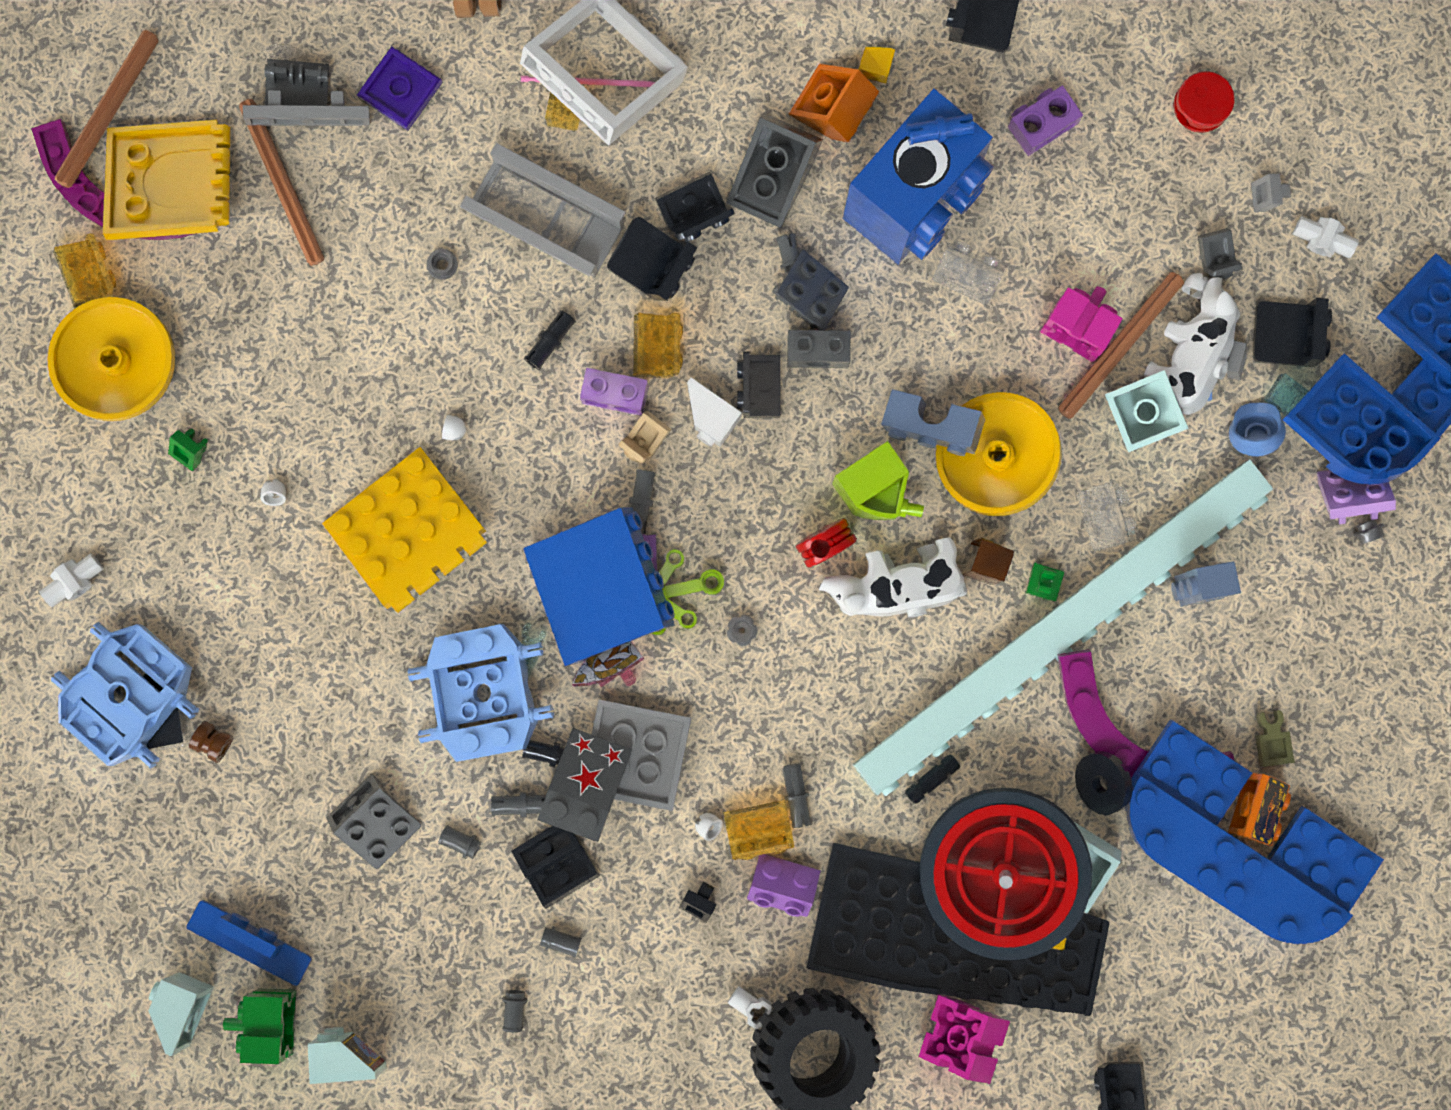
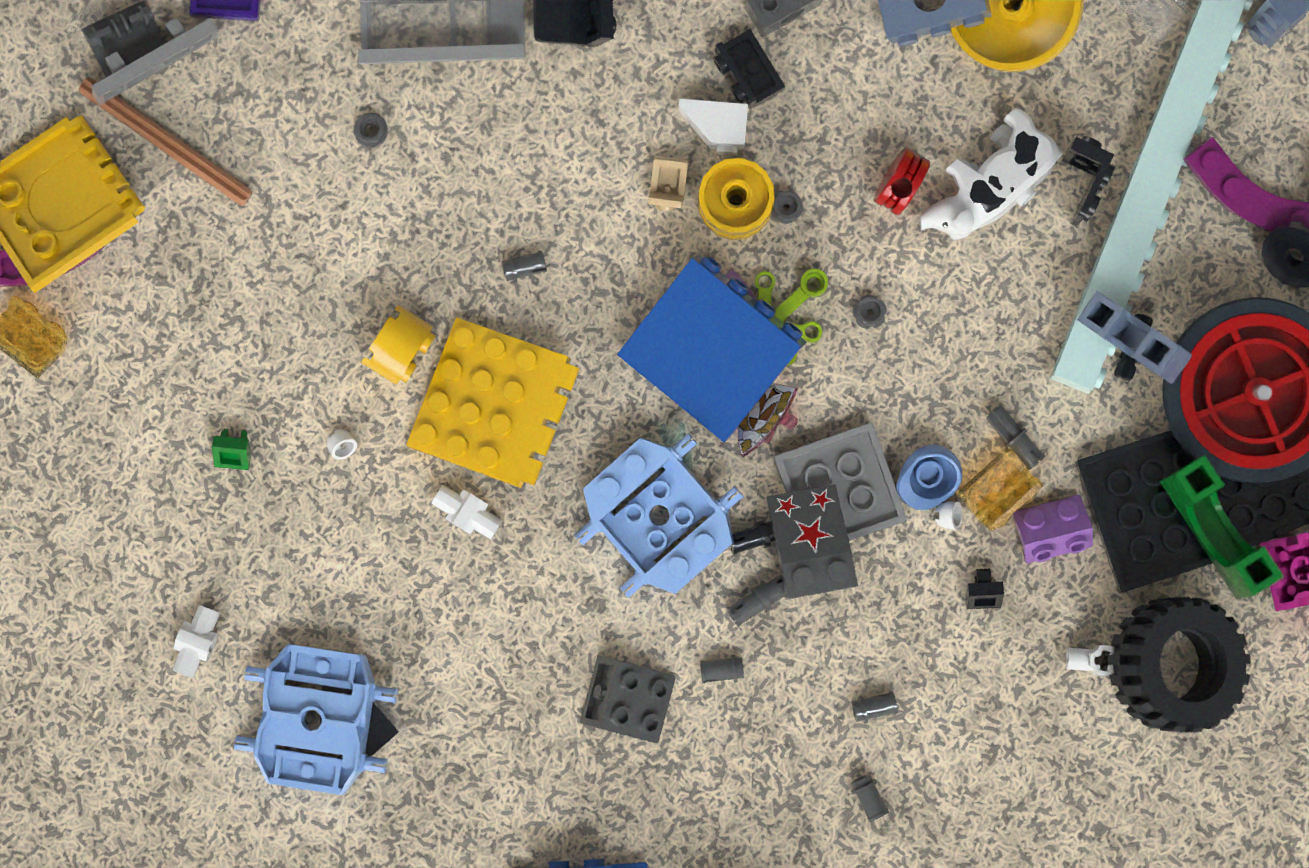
camera: 30 degrees left, 0 degrees up
(111, 359) = (106, 406): yellow dish -> none
(210, 741) = (426, 715): reddish brown wheel -> none
(337, 602) = (467, 512): none -> white axle
(359, 442) = (398, 345): none -> yellow brick
(453, 428) = (479, 280): white hinge -> none
(495, 437) = (524, 266): none -> dark grey pin
(548, 851) = (813, 625): black slope -> none
(549, 340) = (519, 142): black pin -> none
(614, 391) = (613, 155): medium lavender brick -> none
(642, 495) = (696, 235): dark grey pin -> none
(657, 345) = (627, 87): clear yellow bracket -> none
(684, 463) = (740, 179): none -> yellow wheel
(709, 787) = (929, 477): none -> medium blue hat
(726, 501) = (795, 206): none -> flat silver plate
(876, 486) = (919, 99): lime piece -> none
(909, 998) = (1239, 564): none -> green arch
(932, 775) = (1134, 337): none -> sand blue arch
(984, 608) = (1091, 158): none -> black bracket
(991, 561) = (1069, 105): reddish brown piece -> none
(1044, 582) = (1128, 99): green tile -> none

